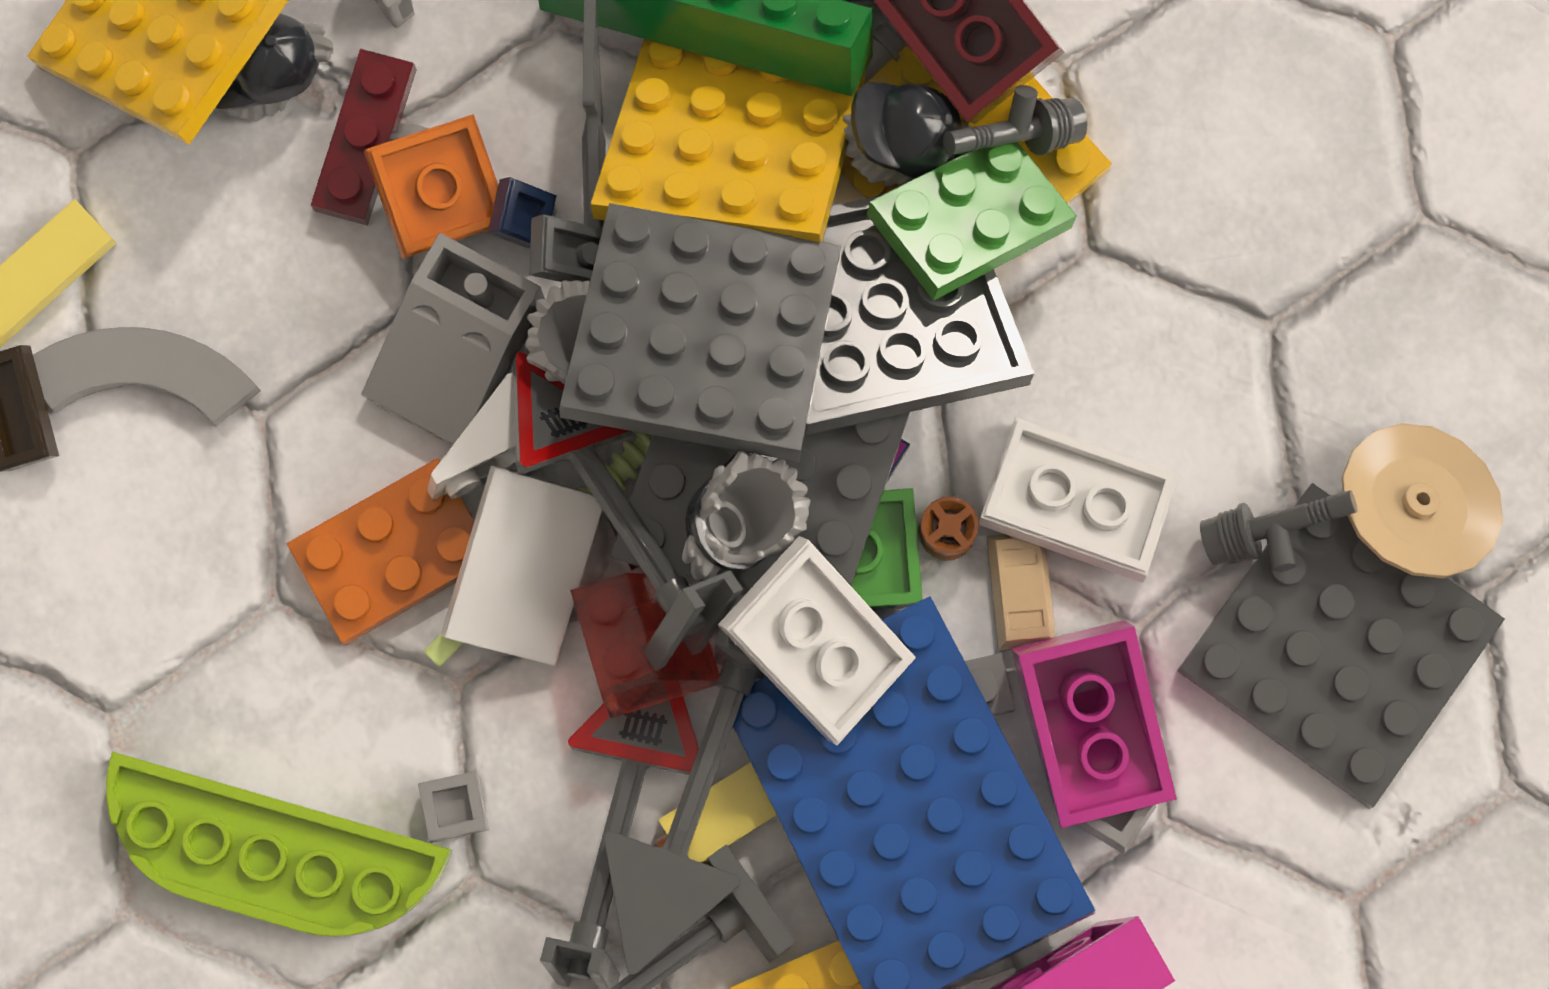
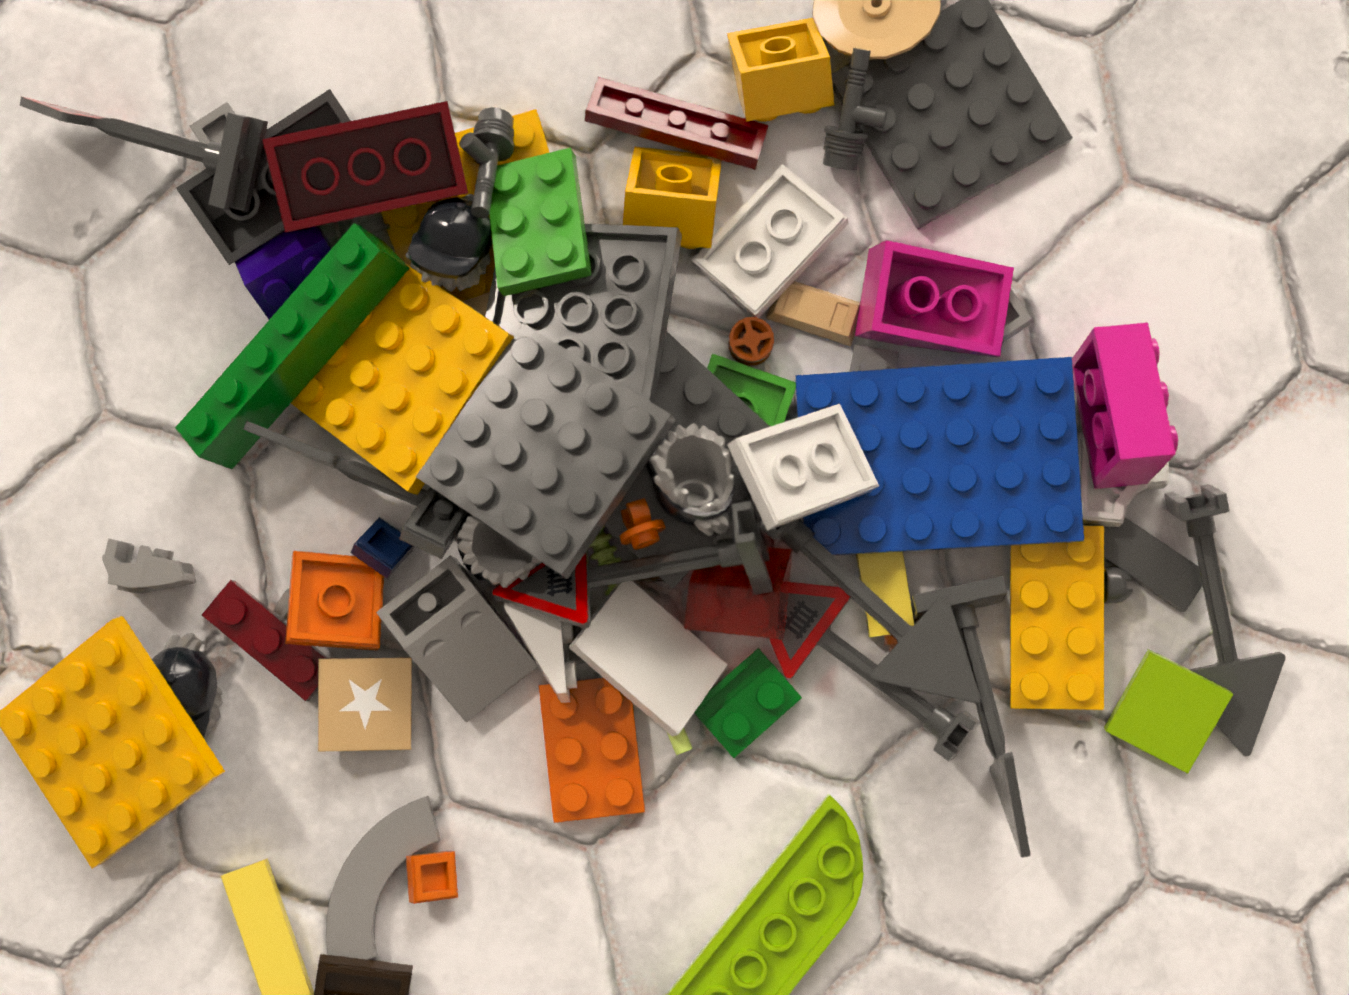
camera: 65 degrees left, 5 degrees up
(168, 432) = (431, 876): none -> orange tile
(333, 271) = (364, 704): none -> tan tile
(453, 806) = (799, 779): light grey plate -> none
(519, 707) = (746, 703): none -> green plate
(658, 484) = (640, 529): none -> orange plate
(1082, 362) = (673, 191): none -> yellow slope
(1169, 330) = (676, 123): none -> dark red plate
(1289, 422) = (781, 70): none -> yellow slope

